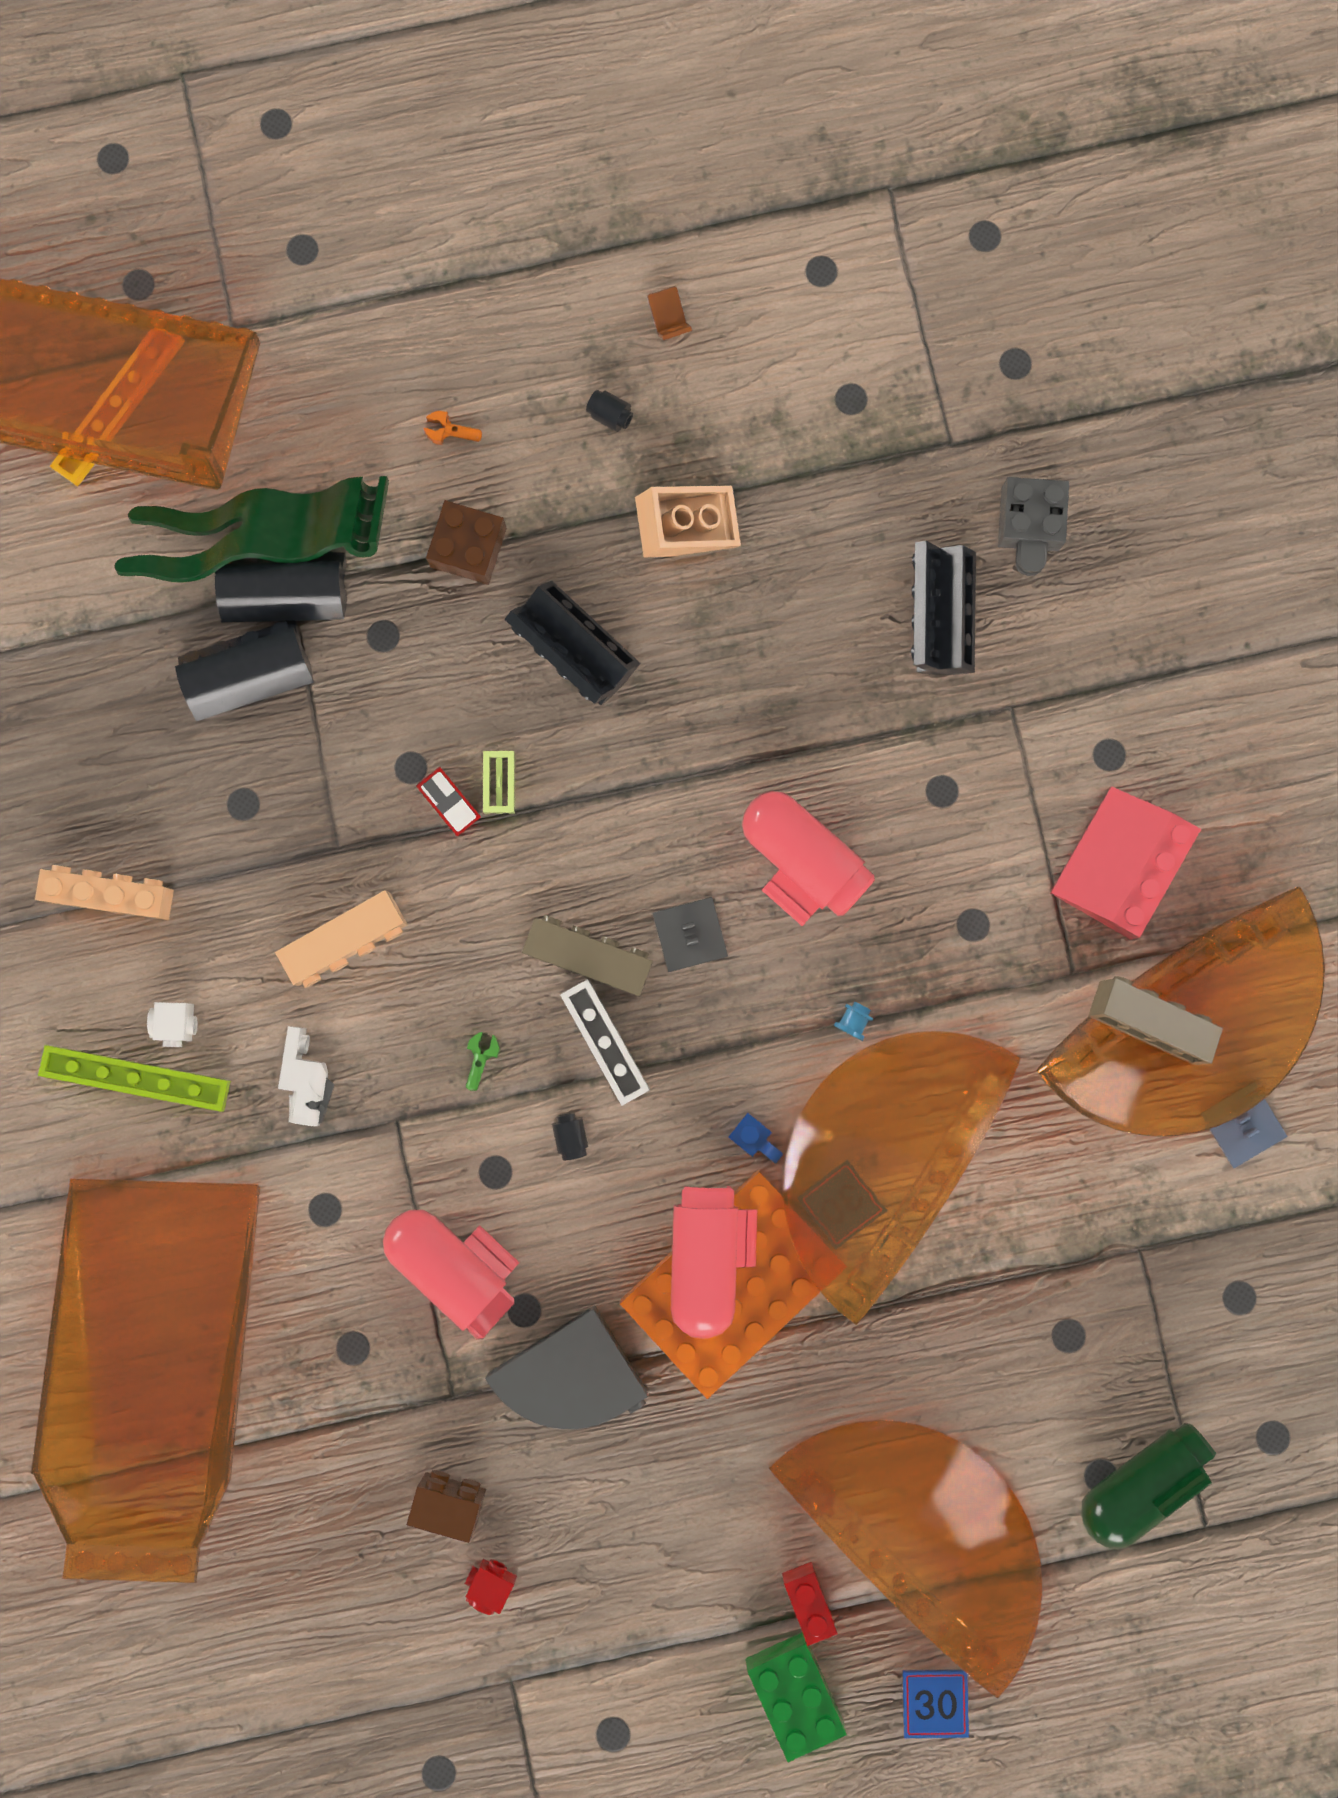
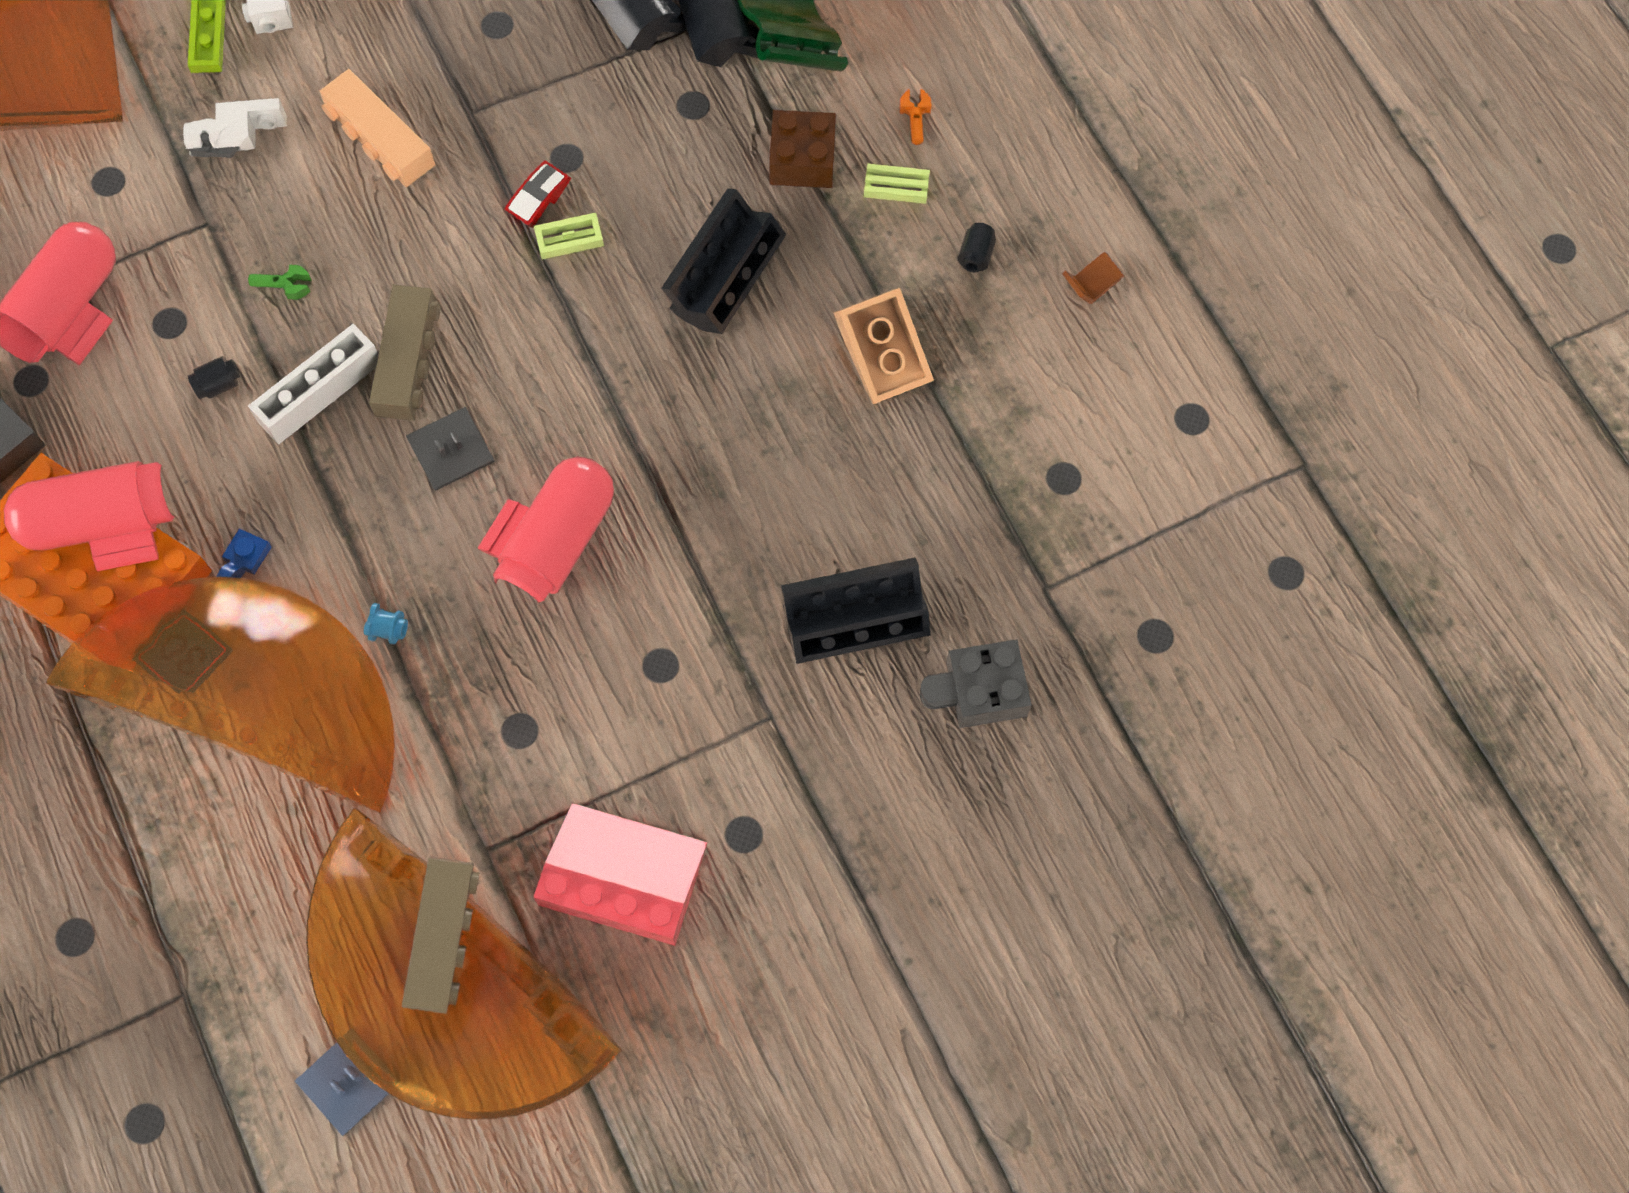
camera: 70 degrees right, 15 degrees down
(528, 443) = (896, 178): none -> yellowish green tile

